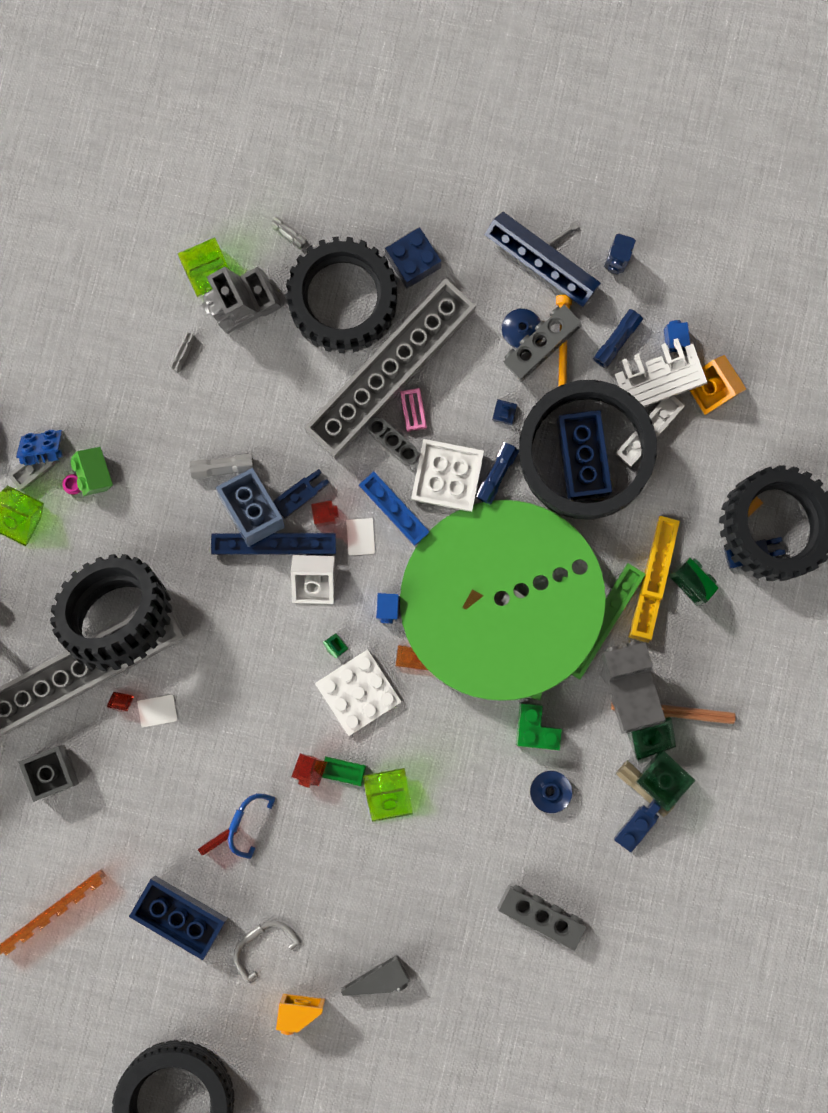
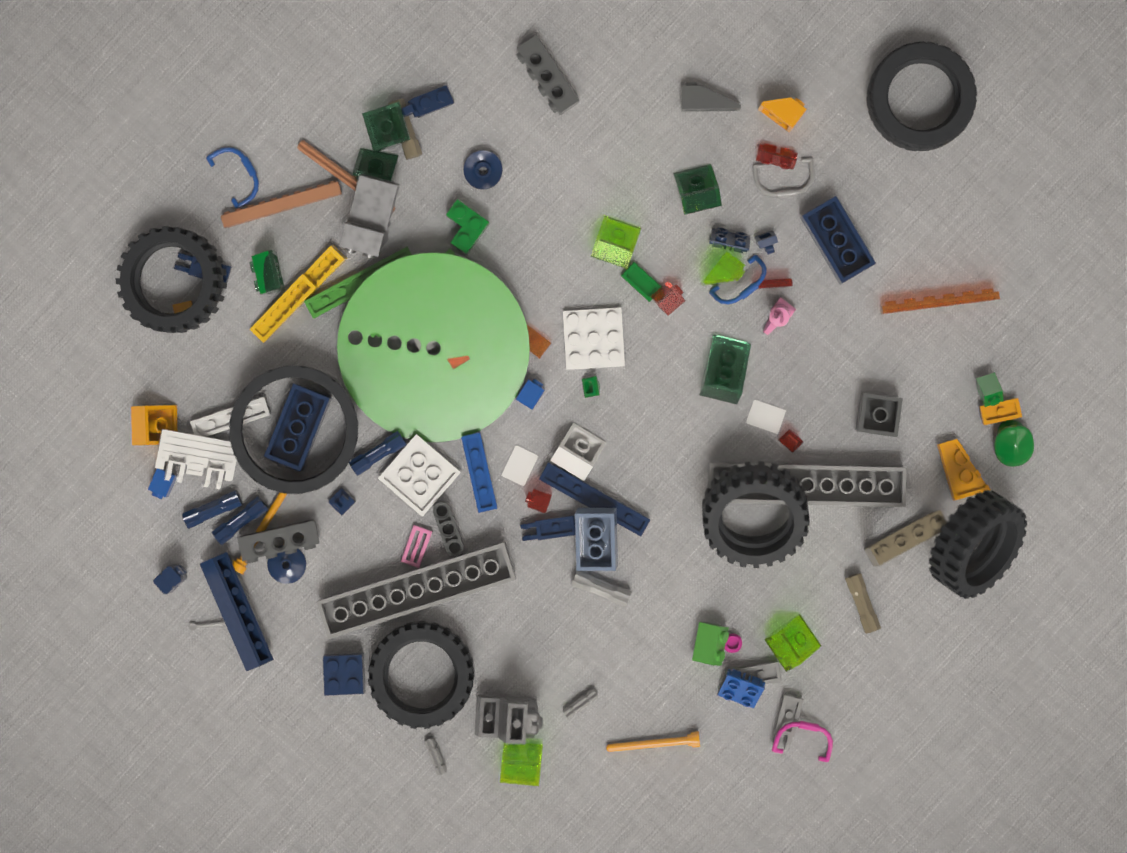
camera: 150 degrees left, 5 degrees up
(61, 376) = (691, 739): none -> light orange piece
(194, 813) = (779, 315): none -> bright pink piece
(218, 733) = (725, 369): none -> clear green slope
(246, 878) = (766, 240): none -> dark blue tile
(269, 827) = (725, 271): none -> clear neon green slope
(272, 966) = (785, 159): none -> clear red hinge
(273, 862) = (738, 240): none -> dark blue hinge
(338, 889) = (697, 189): none -> clear green slope
(592, 329) = (250, 512): none -> dark blue axle
(717, 652) = (280, 205): none -> nougat piece
(768, 670) = (249, 167): none -> blue piece

